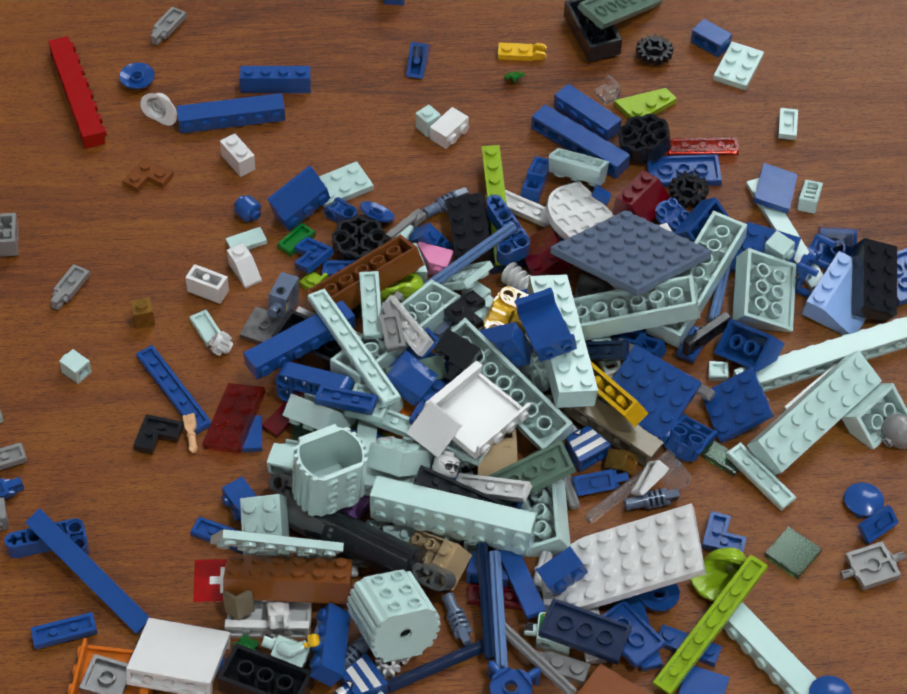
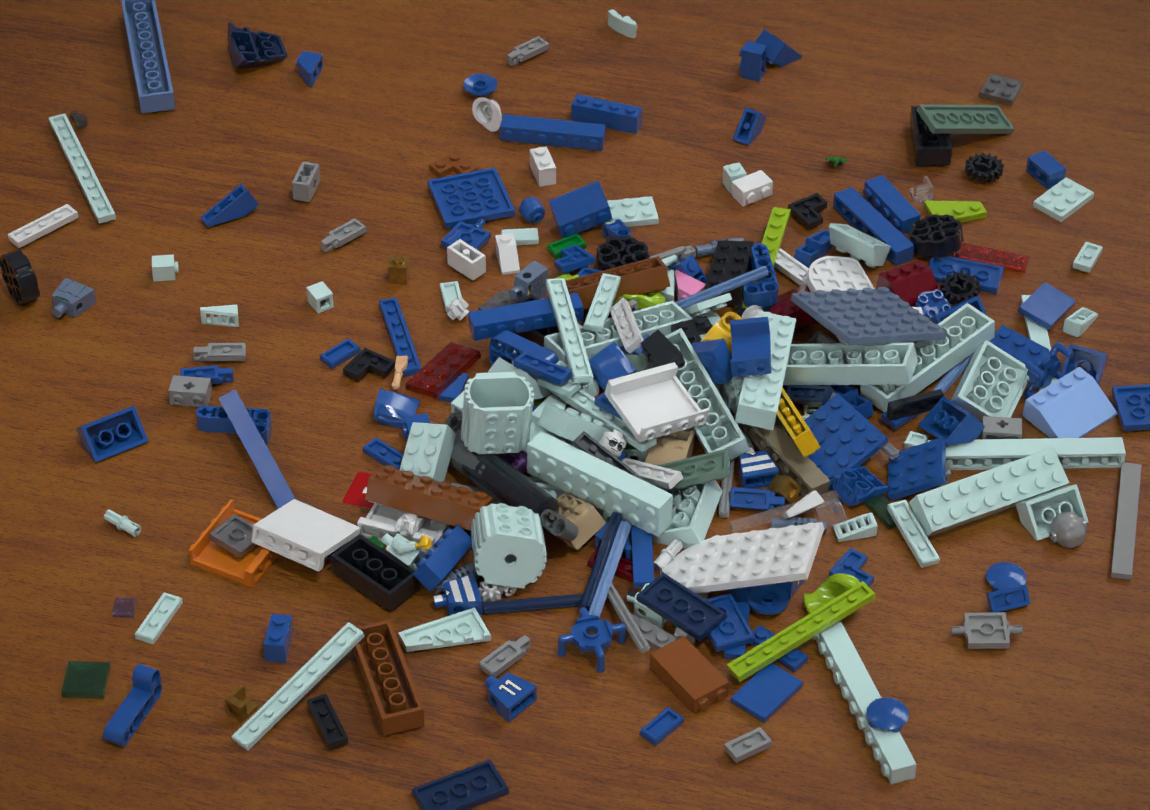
camera: 20 degrees right, 10 degrees down
(63, 630) = (218, 492): blue plate -> none
(77, 92) = (421, 86): red brick -> none
(121, 426) = (340, 353): none -> blue tile
(180, 209) = (471, 197): none -> blue plate
(193, 253) = (469, 233): none -> blue plate
(205, 477) = (393, 407): none -> blue slope
(239, 605) = (377, 506): dark tan panel -> none
(282, 544) = (425, 460): light aqua plate -> none
(376, 211) = (650, 239): blue dish -> none
(391, 329) = (610, 323): light grey hinge -> none
(434, 428) = (609, 405): white tile -> none
(457, 619) = (570, 572): sand blue hinge -> none
(510, 140) = (807, 210): none -> black plate
(521, 51) = (853, 142): yellow hinge -> none
(562, 571) = (681, 553): blue brick -> none
(601, 194) = (870, 272): blue tile -> none
(714, 477) = (866, 522): none -> light aqua slope
(780, 246) = (1021, 349): light aqua brick -> none
(793, 552) = (915, 602): clear green tile -> none
(795, 336) = (1001, 428): none -> light grey brick
(874, 280) = (1103, 398): black brick -> none

